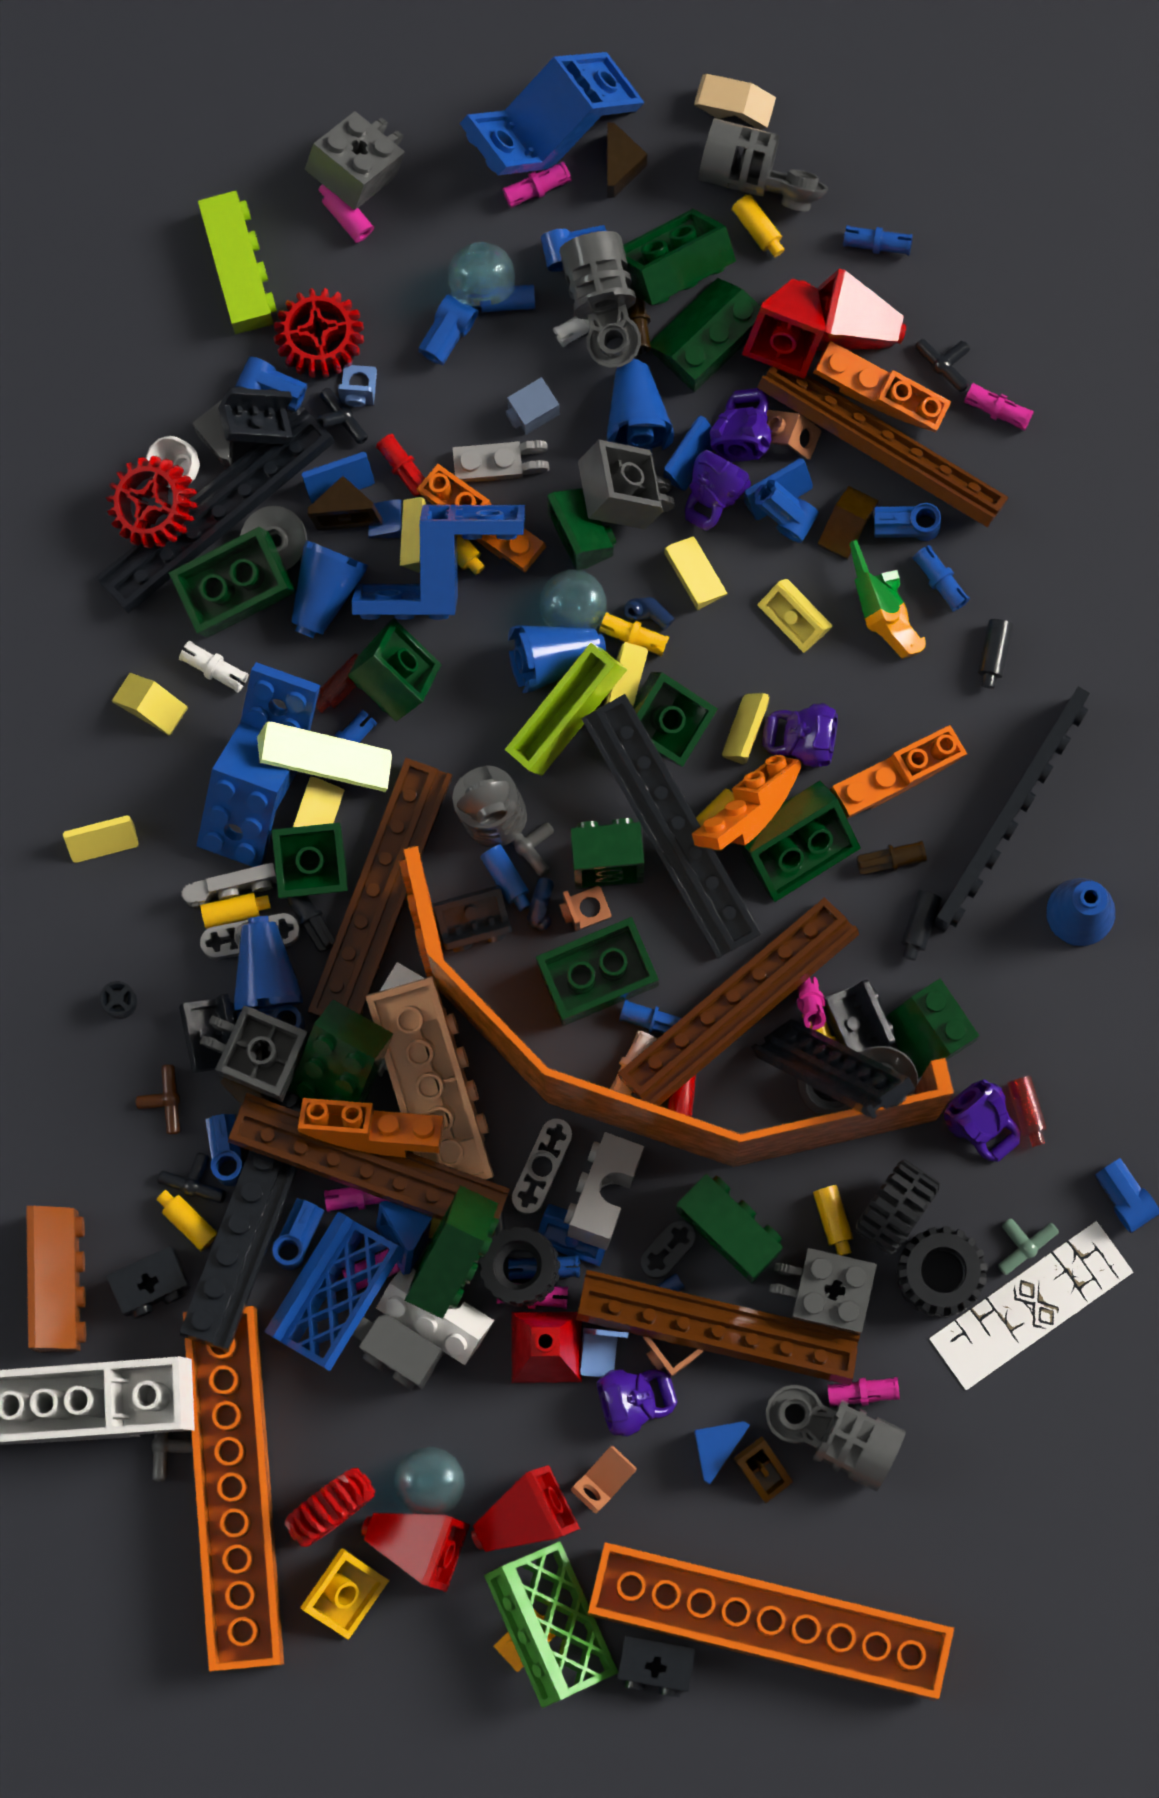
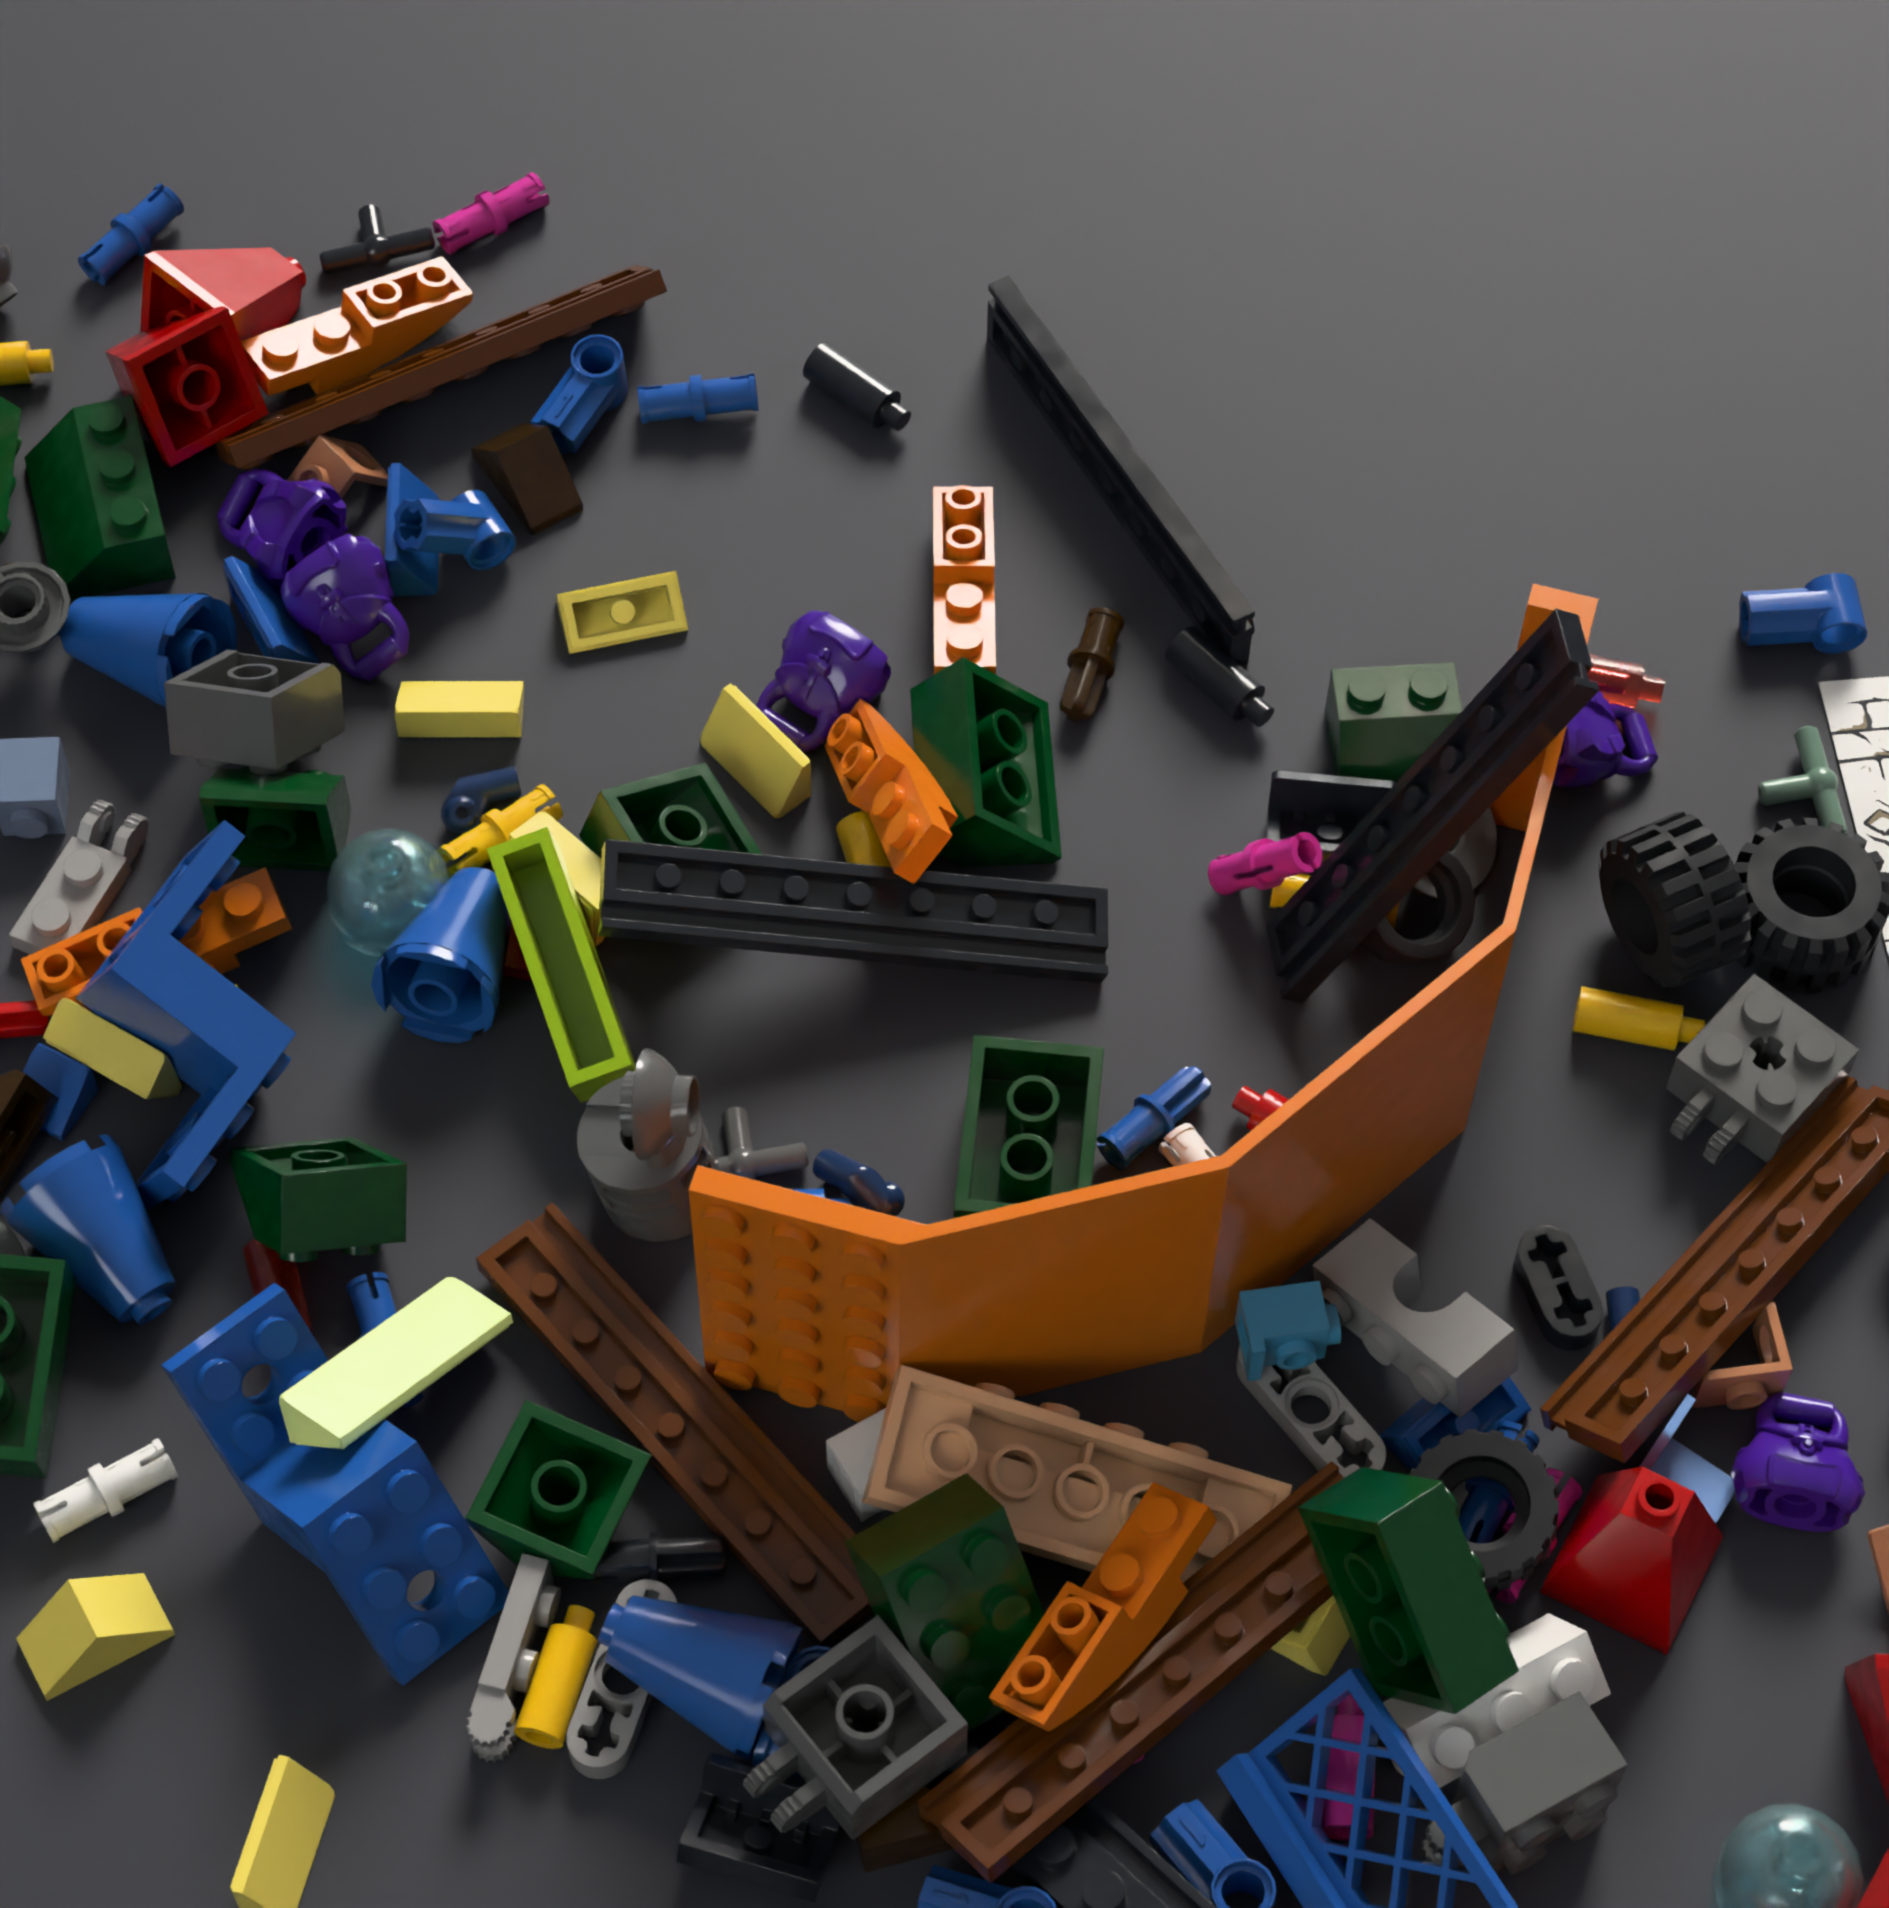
camera: 65 degrees left, 20 degrees down
(319, 803) = (458, 1441): light yellow slope -> none
(349, 1198) = (1197, 1745): dark pink pin -> none
(406, 1229) = (1304, 1668): blue slope -> none
(564, 1135) = (1285, 1327): none -> dark azure brick
(571, 908) = (903, 1135): nougat bracket -> none
(607, 853) = (848, 1014): dark green brick -> none
(730, 1227) = (1581, 1157): dark green brick -> none
(738, 1003) = (1198, 947): reddish brown plate -> none
(884, 607) = (689, 483): animal -> none
(1080, 912) = (1326, 454): blue cone -> none

